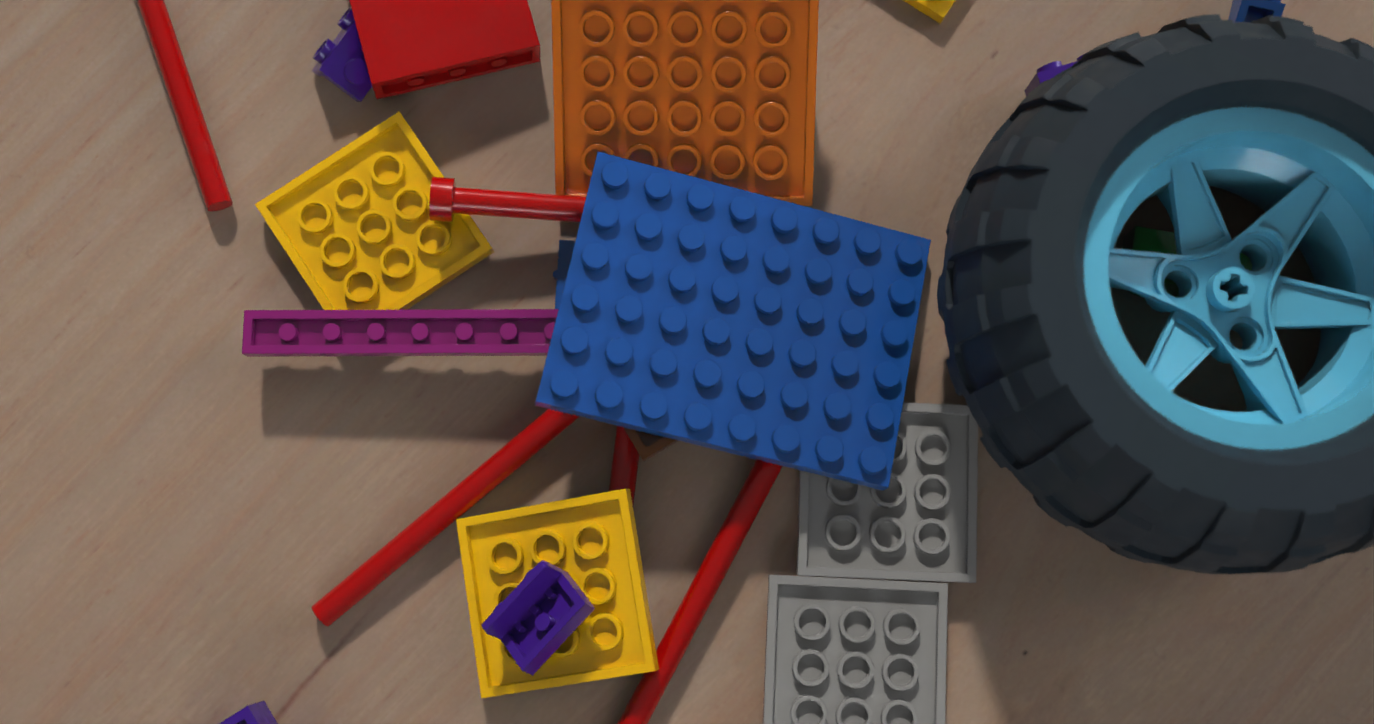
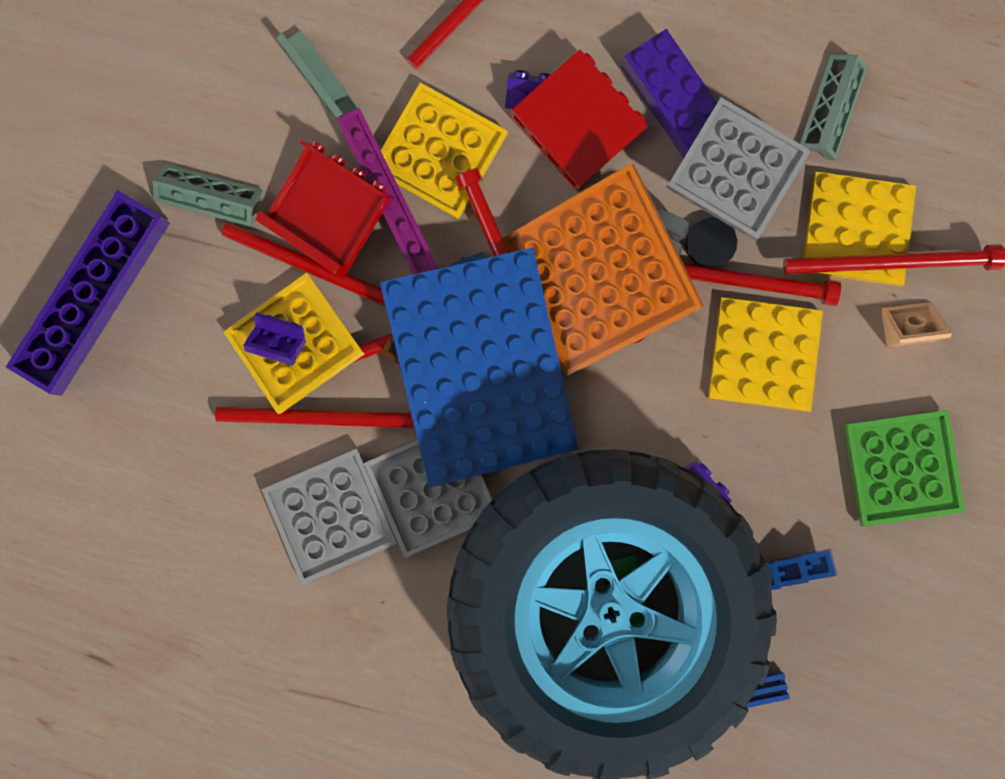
camera: 60 degrees right, 5 degrees up
(158, 355) = (317, 74): none -> sand green fence
(253, 624) = (204, 197): none -> sand green fence
(372, 437) = (326, 209): none -> red panel

